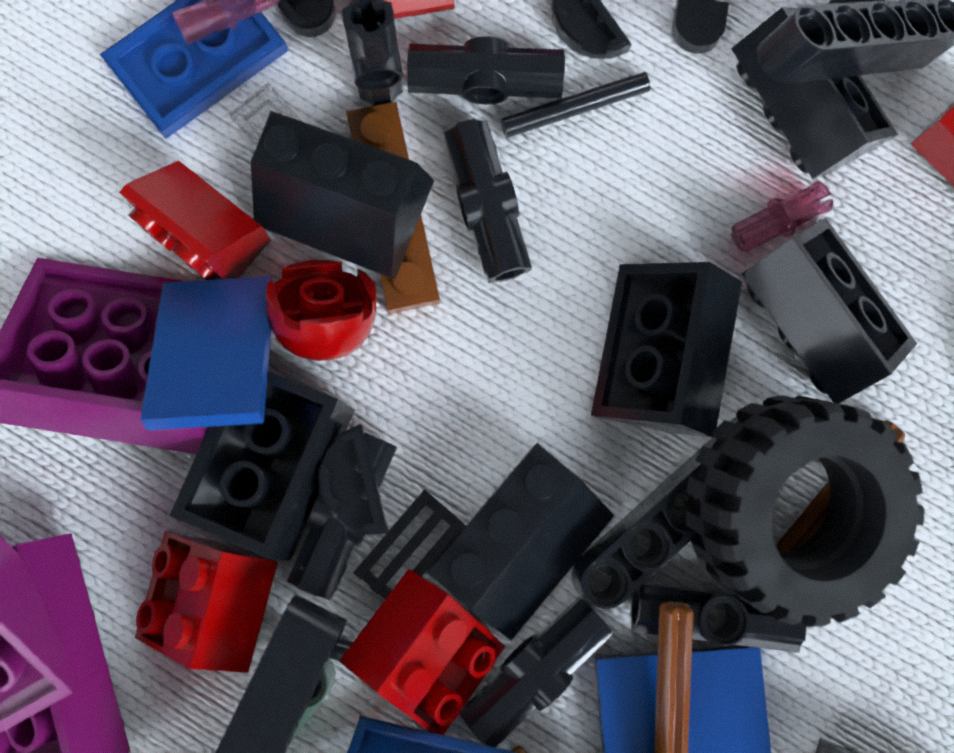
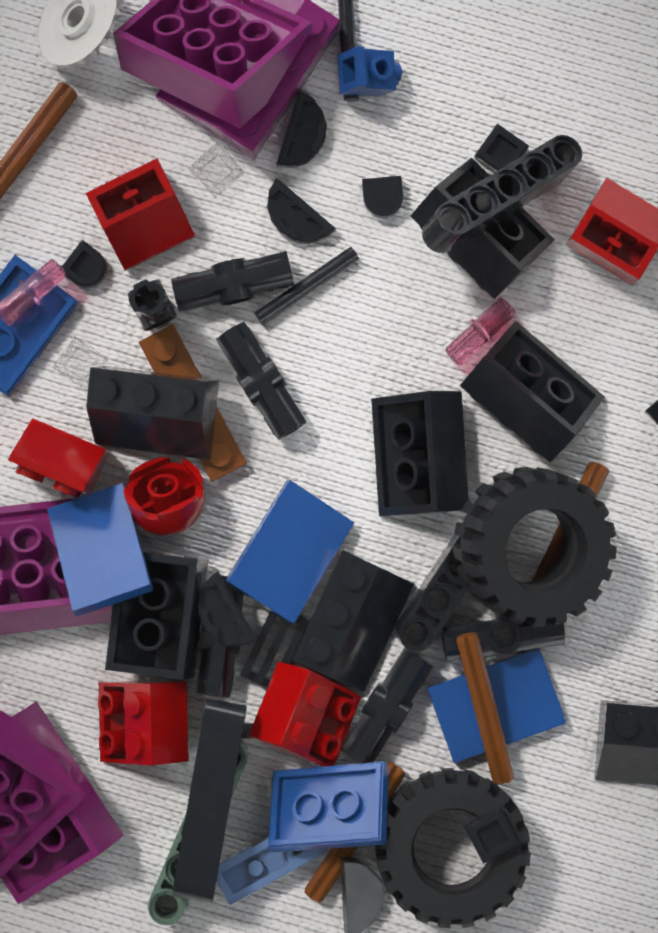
camera: 10 degrees left, 5 degrees up
(463, 428) = (289, 552): none -> blue tile

